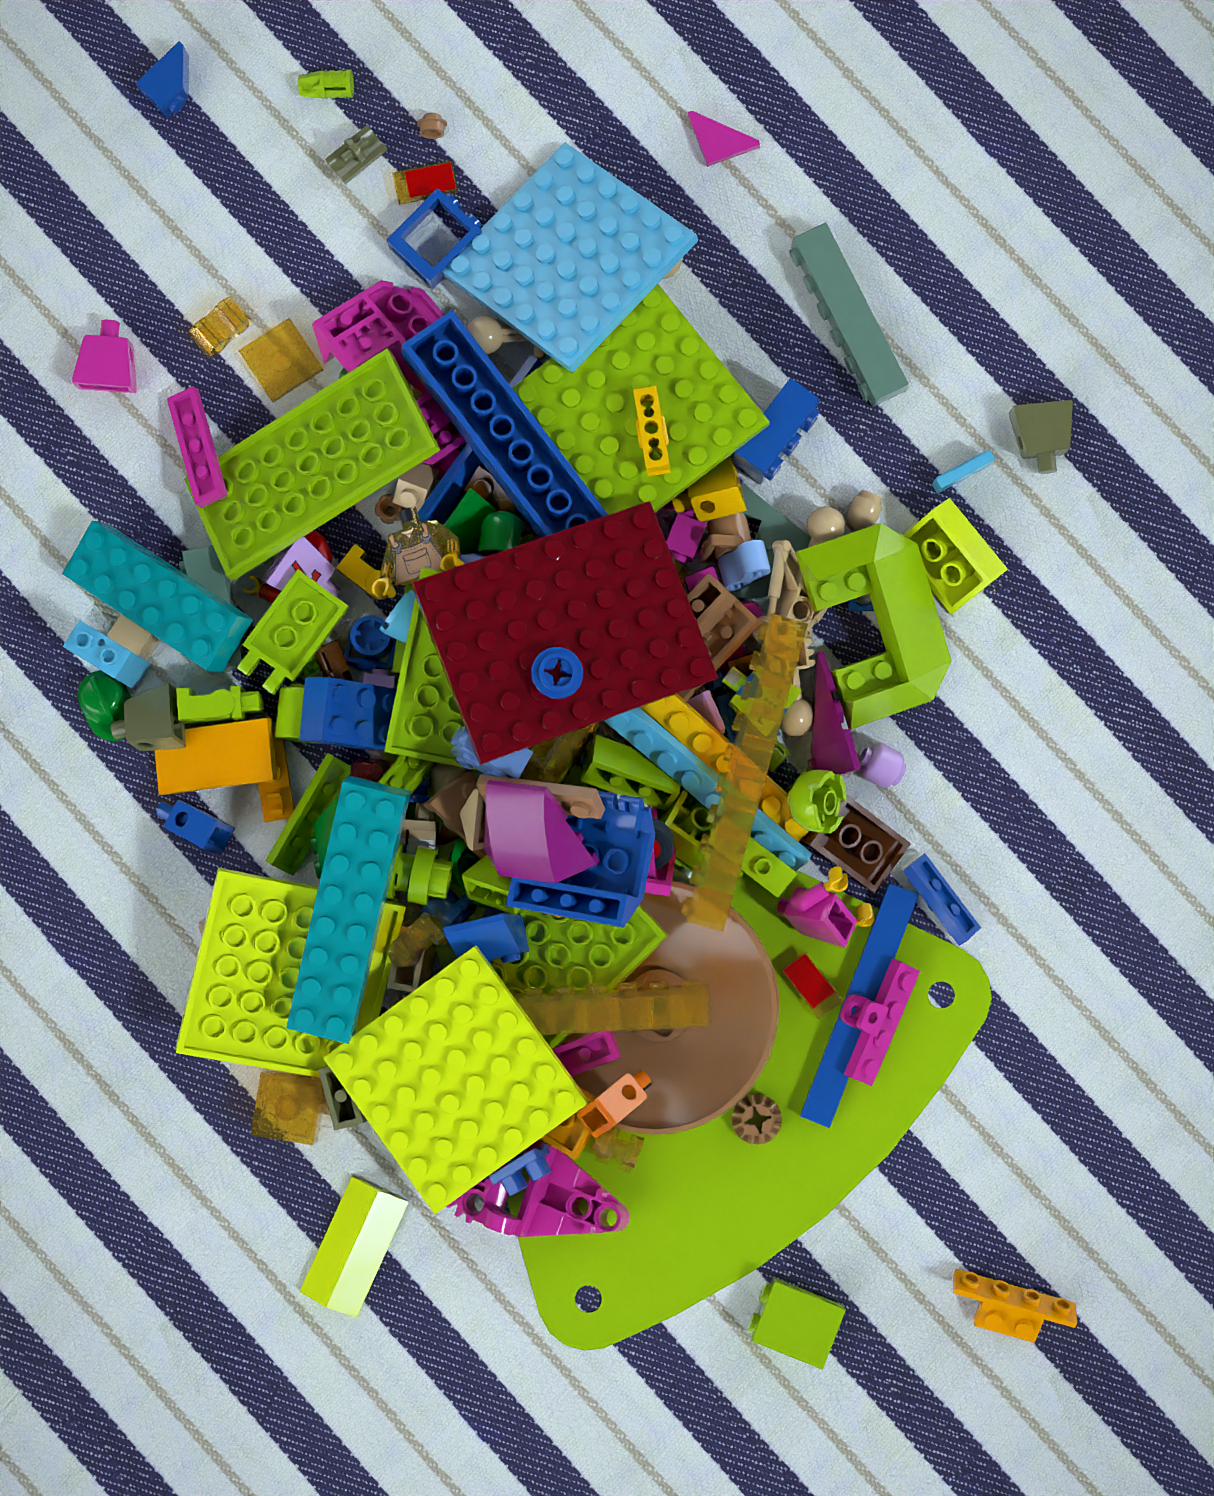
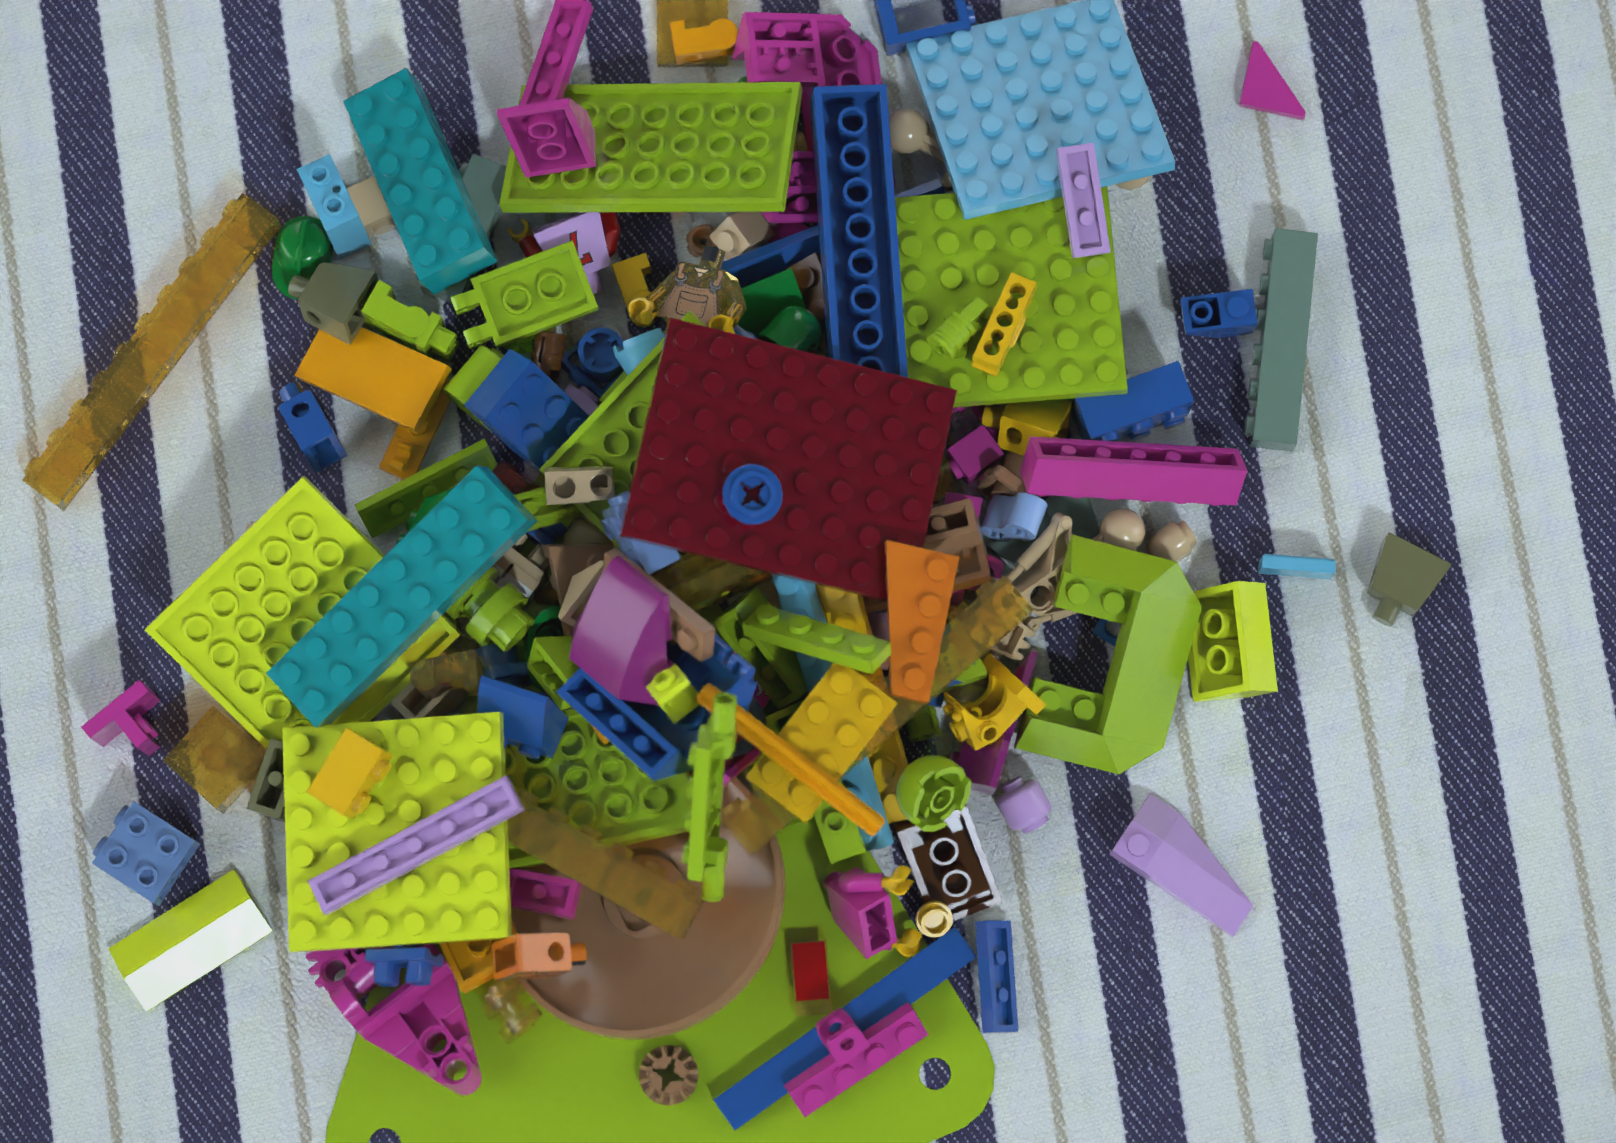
camera: 35 degrees right, 5 degrees down
(43, 845) = (151, 352): none -> clear yellow brick
(202, 1122) = (125, 716): none -> dark pink bracket
(233, 504) = (550, 136): none -> dark pink slope
(280, 1208) = (144, 852): none -> medium blue brick
(296, 363) = (703, 42): none -> light orange leg
(397, 1061) = (350, 774): none -> yellow brick
(421, 744) = (578, 484): none -> tan leg
(478, 1081) = (416, 845): none -> lavender tile
(594, 853) = (673, 693): none -> neon yellow bracket
(621, 456) = (958, 329): none -> lime hinge
(650, 304) = (1083, 200): none -> lavender plate
(669, 746) = (817, 638): none -> lime plate
(691, 949) = (705, 850): none -> lime plate
(709, 847) = (799, 766): none -> light orange axle
(720, 817) = (828, 731): none -> yellow plate
(727, 677) = (918, 604): none -> orange wing
(793, 324) = (1219, 314): none -> blue slope
(807, 478) = (1133, 471): none -> dark pink brick
(811, 729) = (994, 710): none -> yellow tile
(872, 887) = (934, 919): none -> yellow plate
(1014, 735) = (1175, 859): none -> lavender wedge

